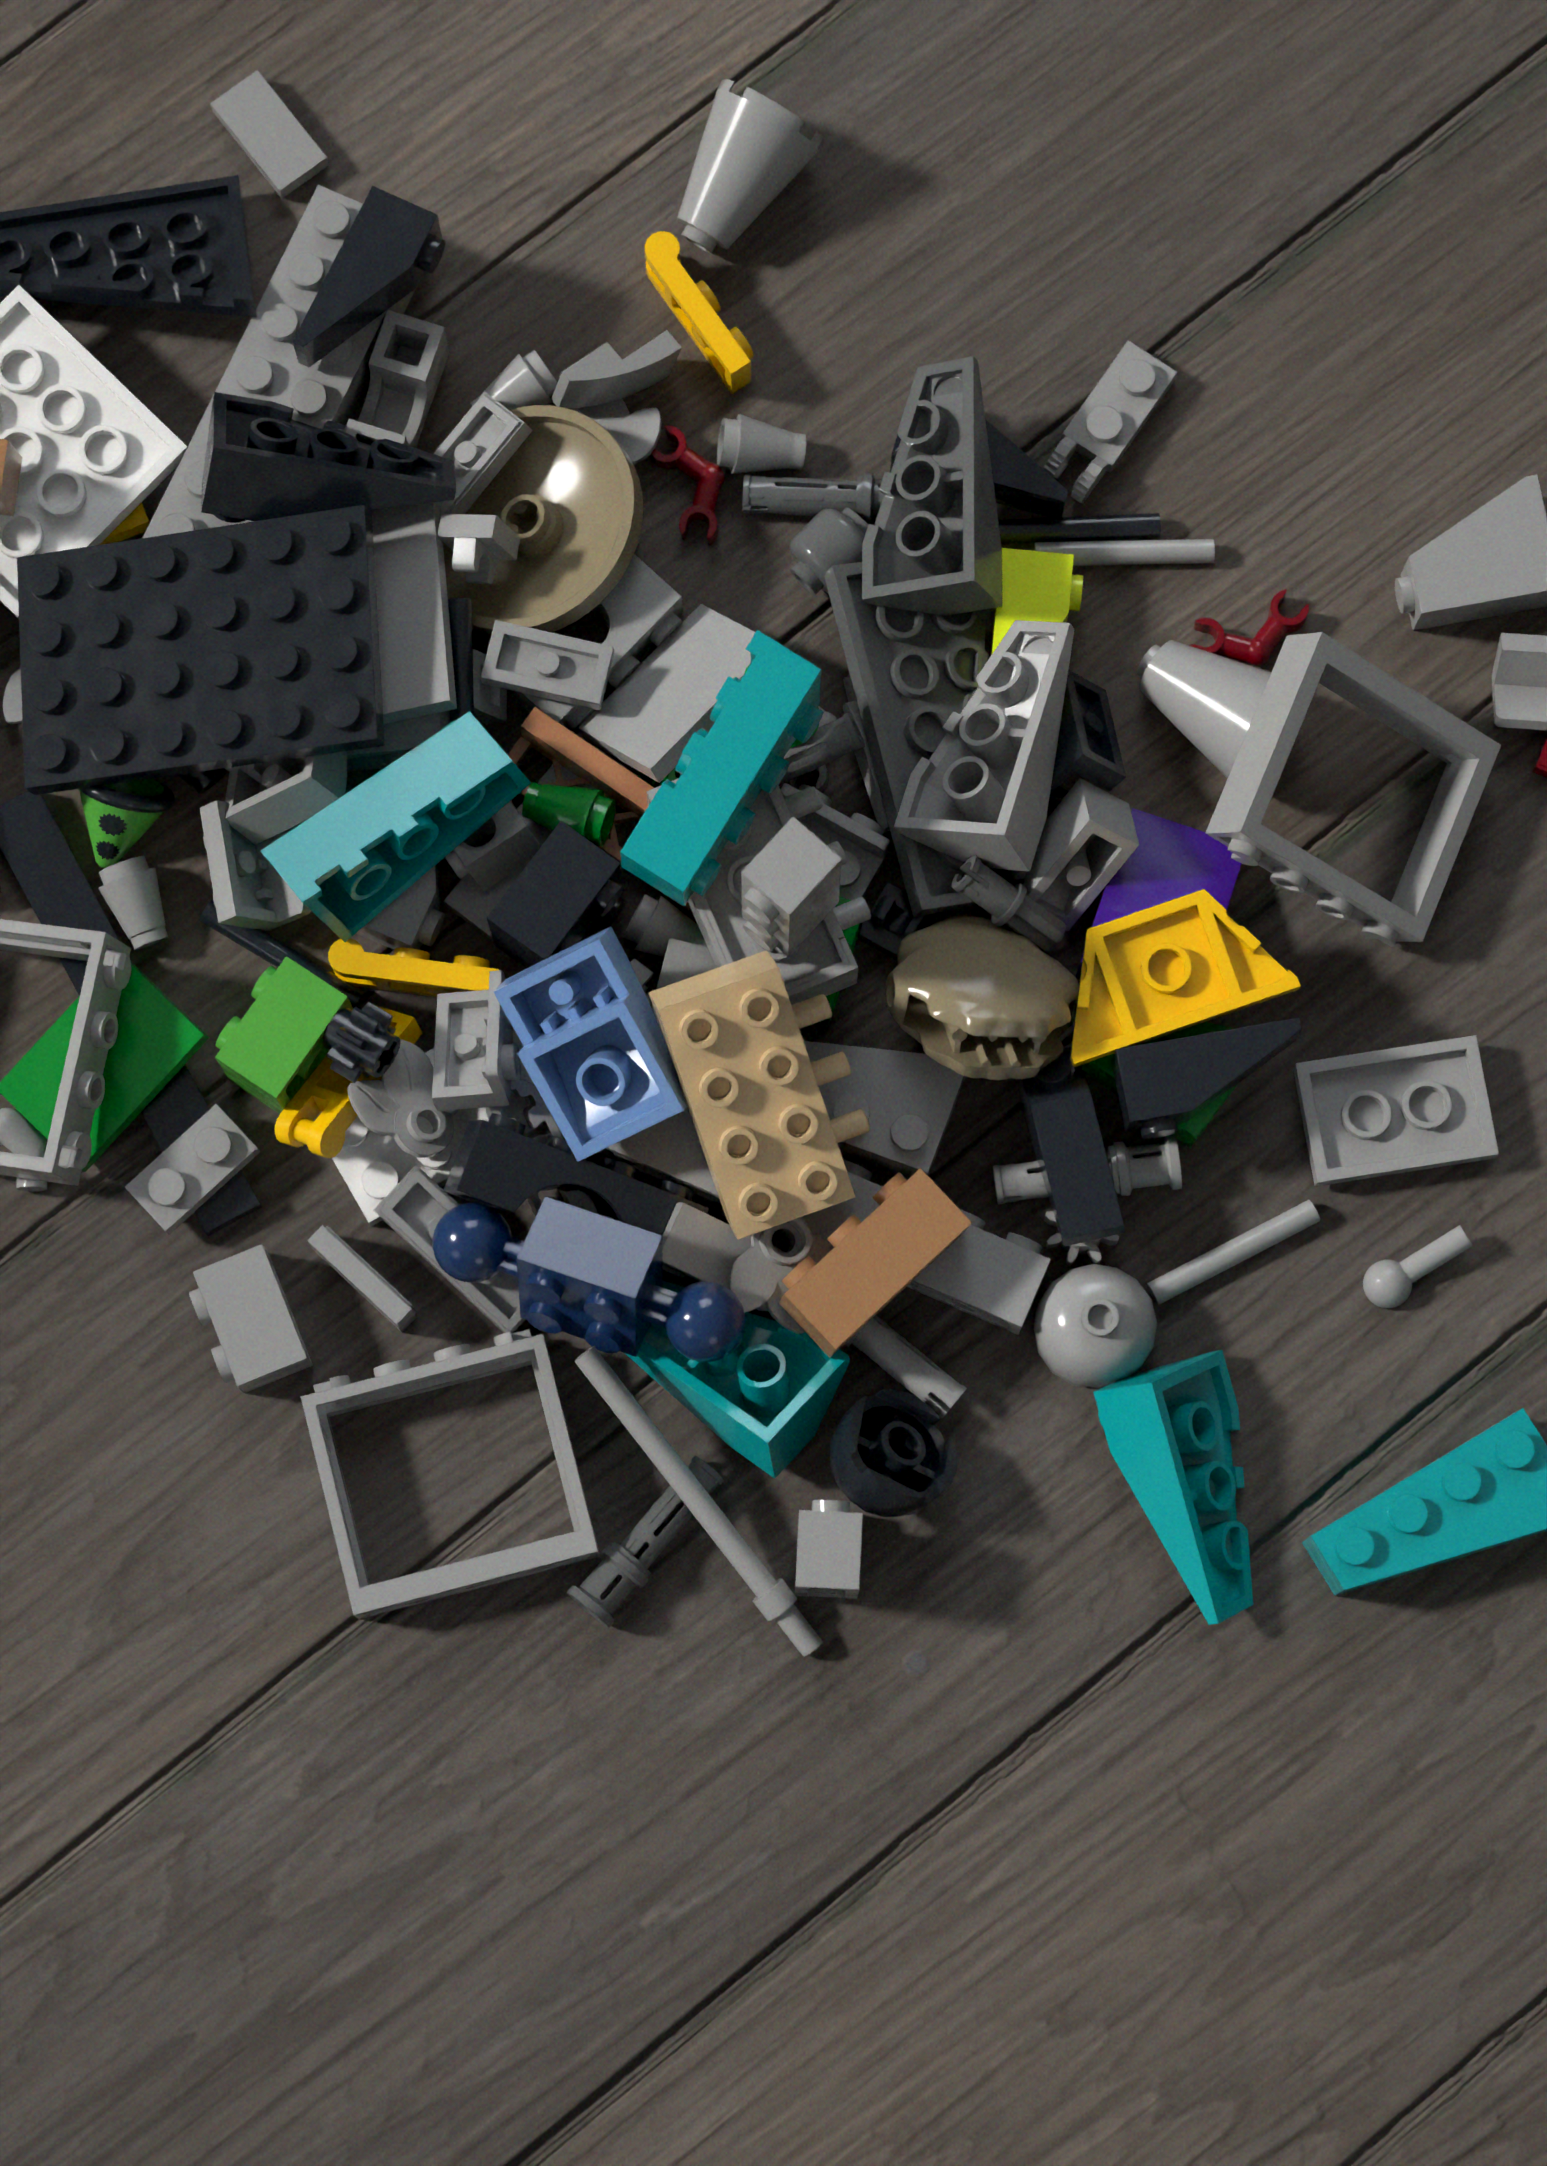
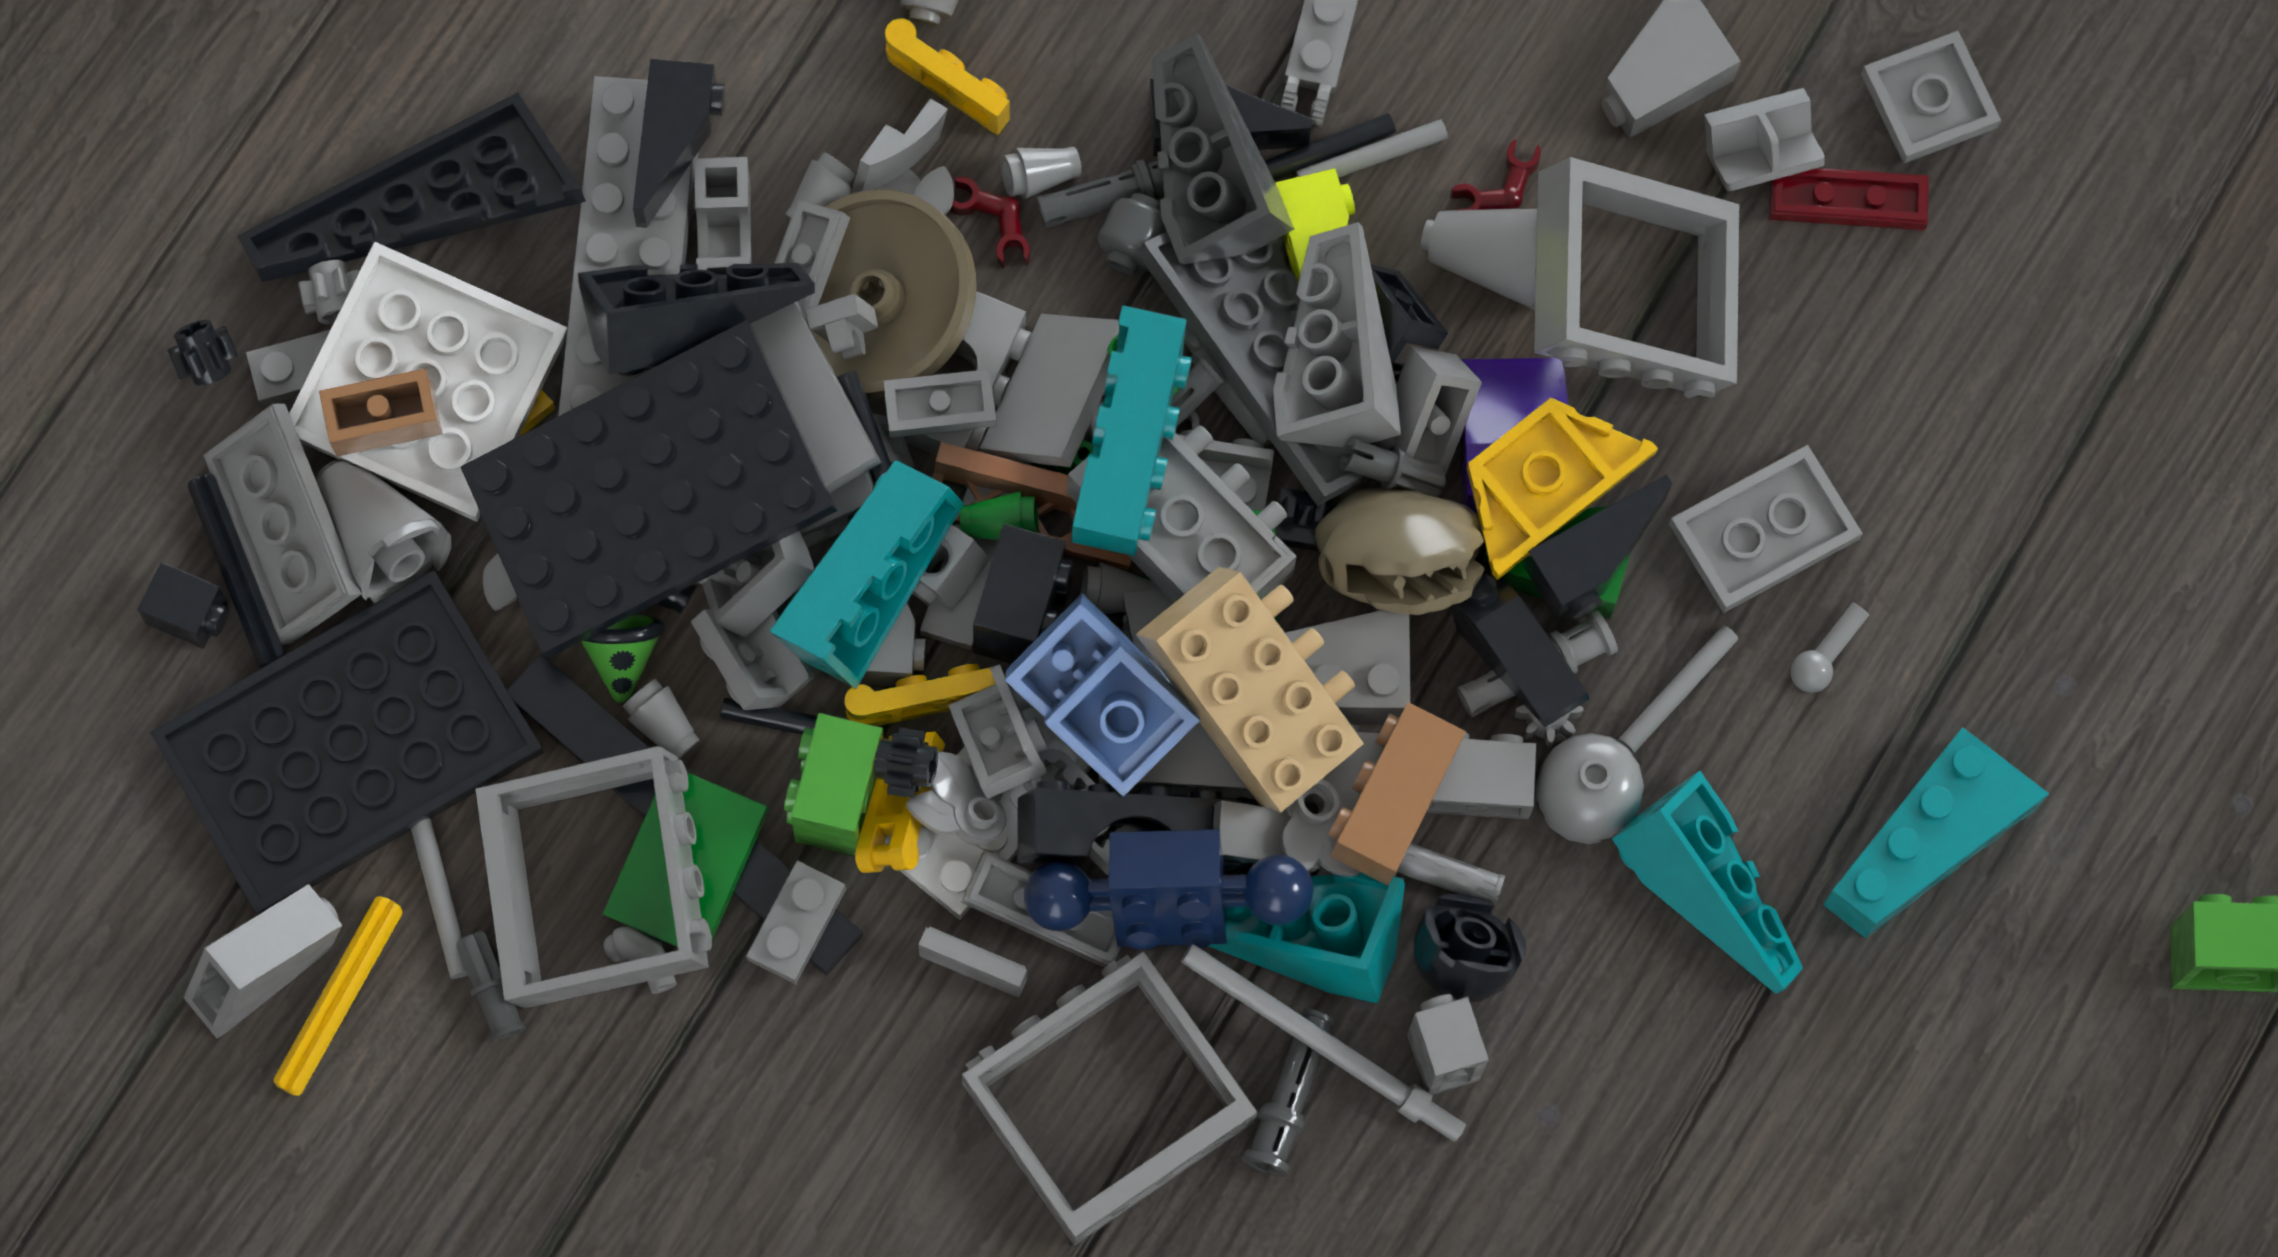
camera: 25 degrees left, 5 degrees down
(250, 1319) = (892, 1029): light grey brick -> none
(269, 134) = (529, 50): light grey tile -> none
(789, 888) = (1225, 505): light grey brick -> none

